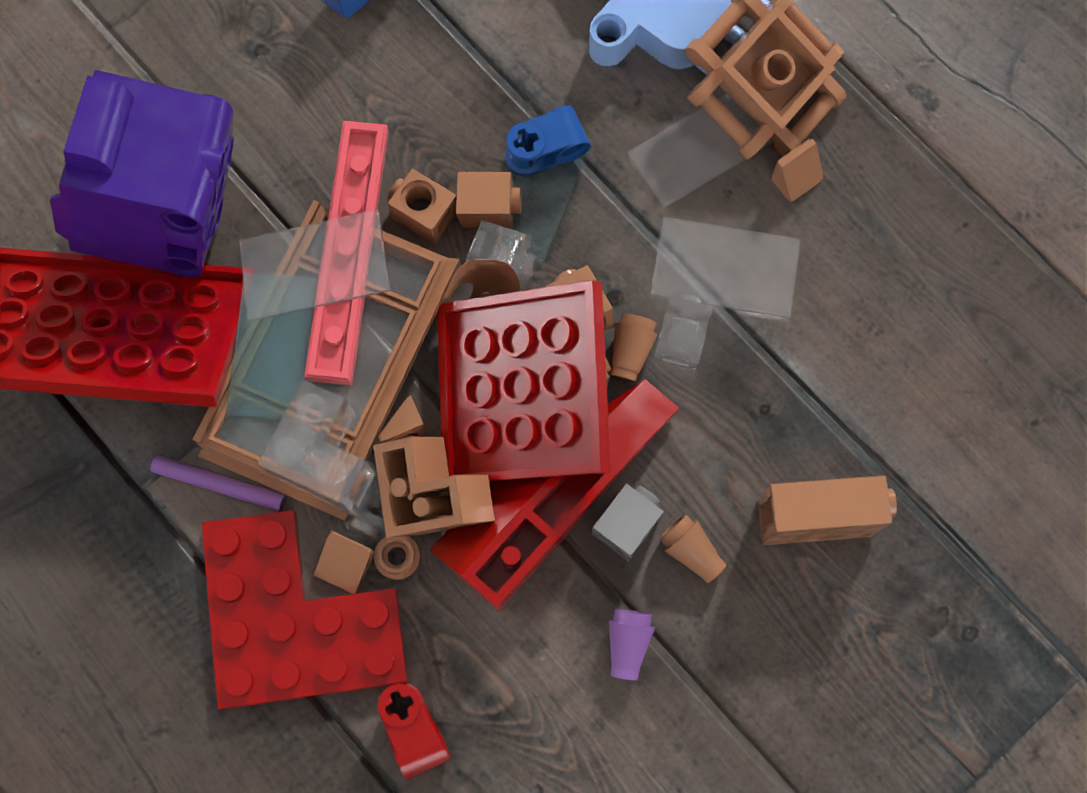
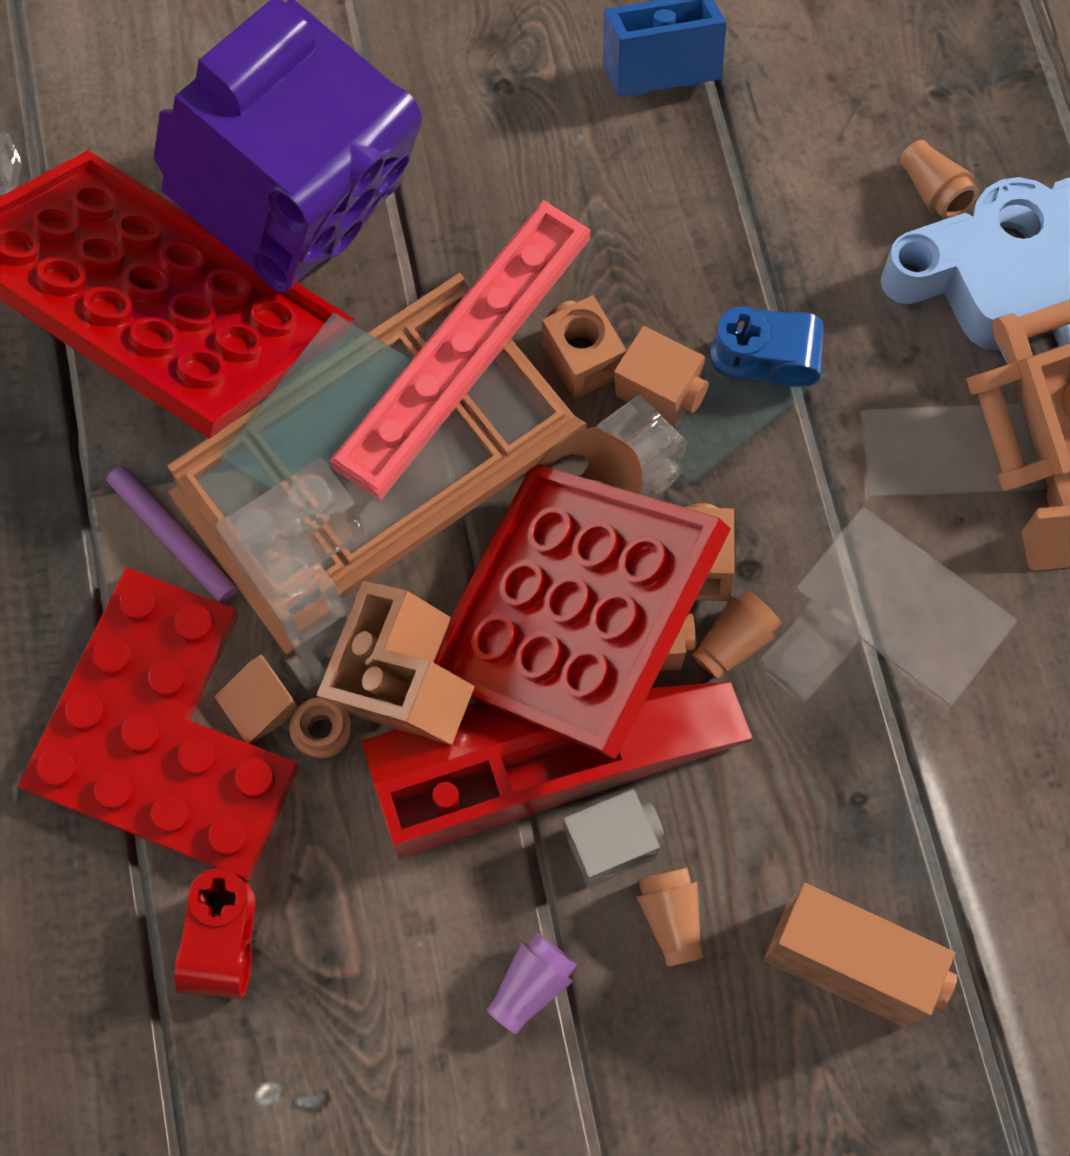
camera: 30 degrees right, 5 degrees down
(314, 265) = (415, 342): clear window -> none
(404, 423) = (419, 576): nougat slope -> none

